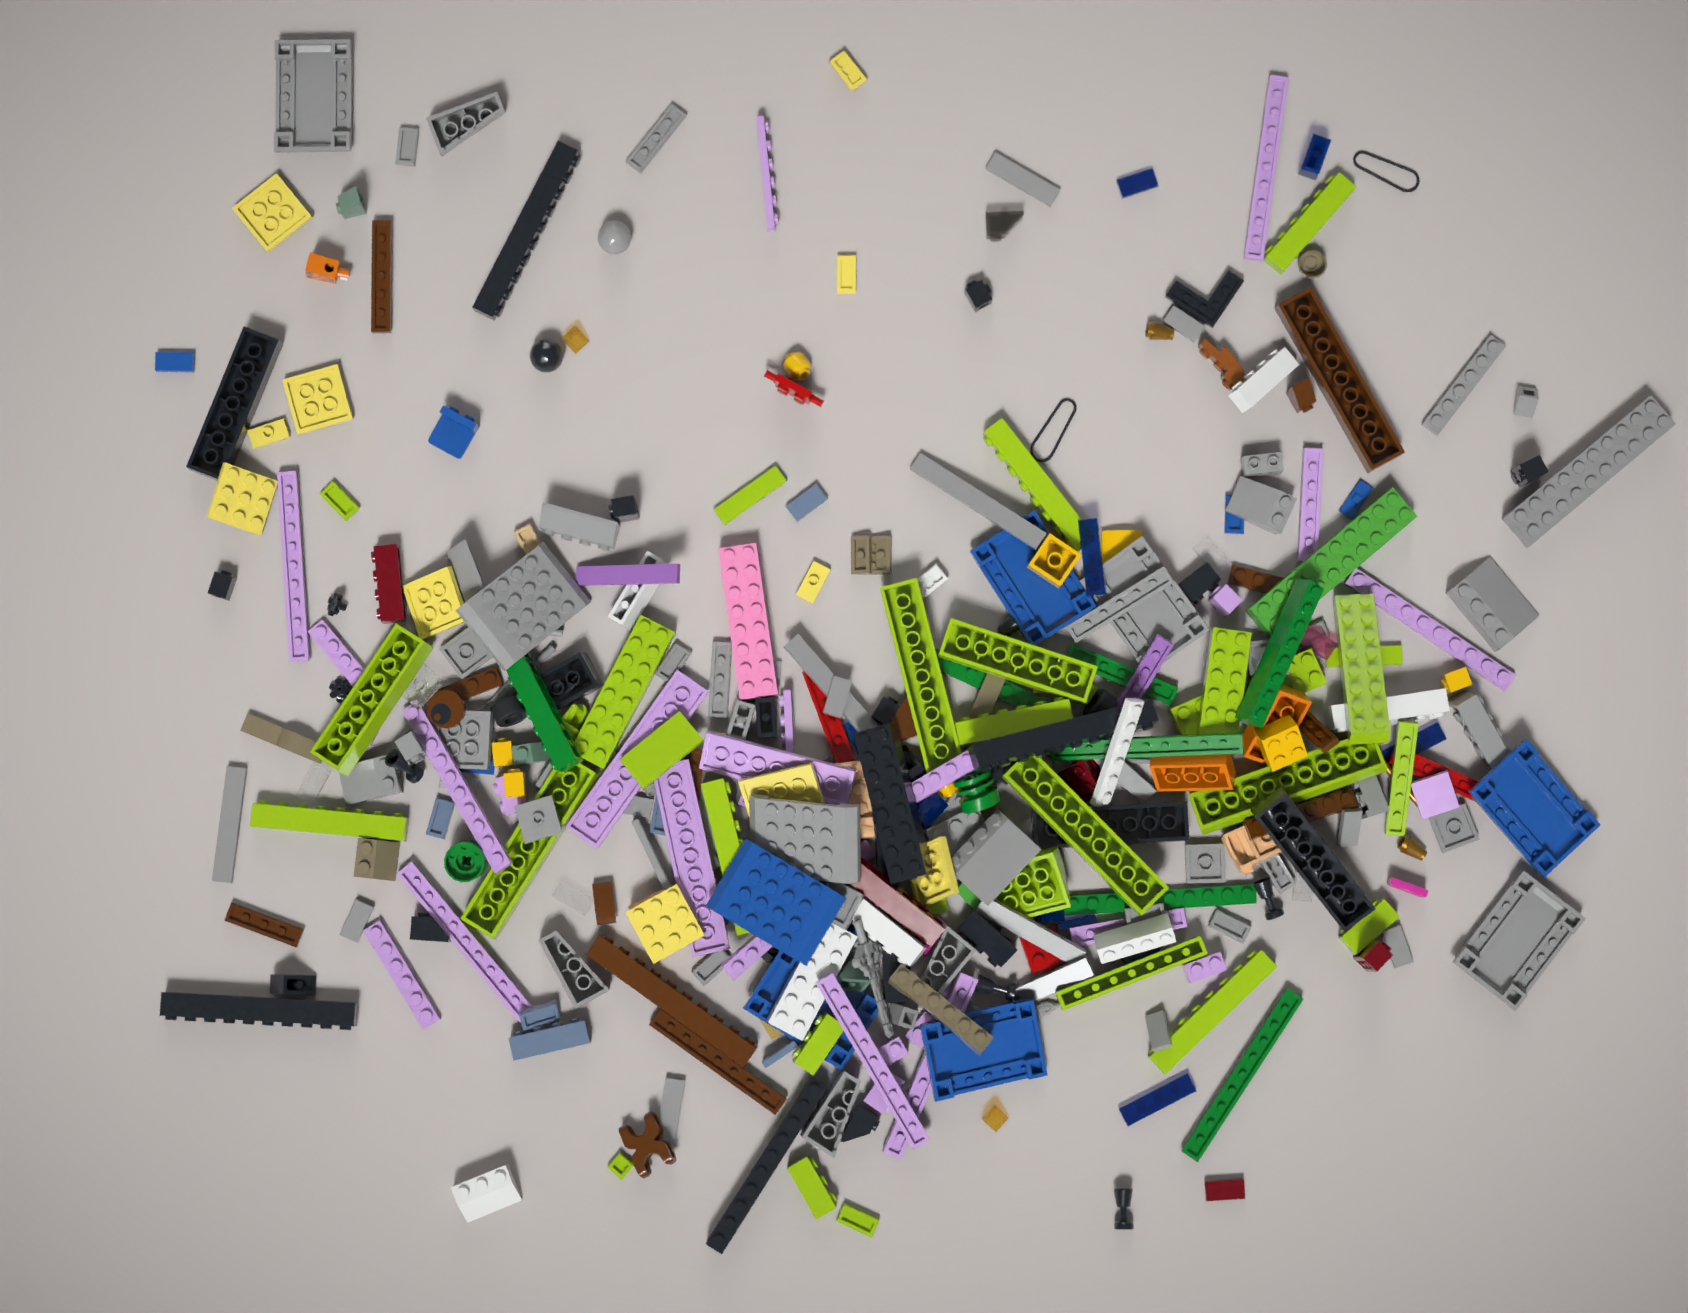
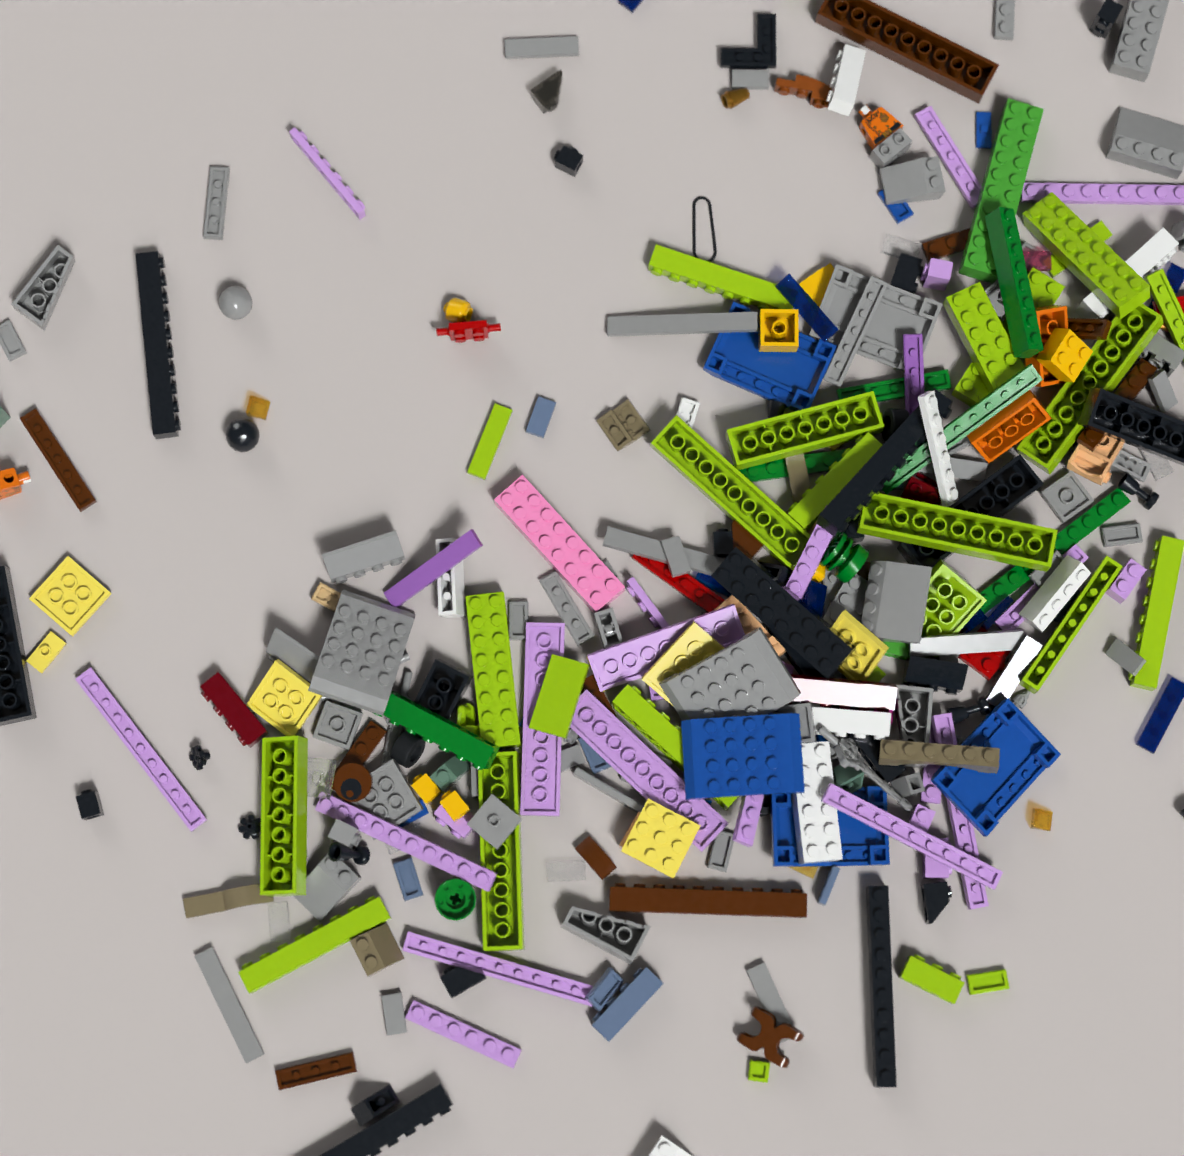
camera: 35 degrees left, 5 degrees down
(241, 499) = (59, 720): light yellow plate -> none
(337, 652) = (226, 797): lavender plate -> none
(339, 501) = (144, 669): lime tile -> none
(453, 432) = (205, 548): blue bracket -> none
(623, 509) = (393, 518): black brick -> none
(717, 1061) = (781, 927): reddish brown plate -> none
(766, 718) = (628, 613): black brick -> none
(813, 582) = (590, 478): light yellow plate -> none
(817, 1043) = (855, 853): lime brick -> none
(830, 1117) = (906, 905): light grey wedge -> none
(846, 274) = (448, 213): light yellow tile -> none
(848, 71) = (340, 50): light yellow plate -> none
(1265, 436) = (877, 125): none -> orange torso
(1302, 396) = (885, 74): reddish brown slope -> none
(1455, 680) = (1164, 218): yellow brick -> none

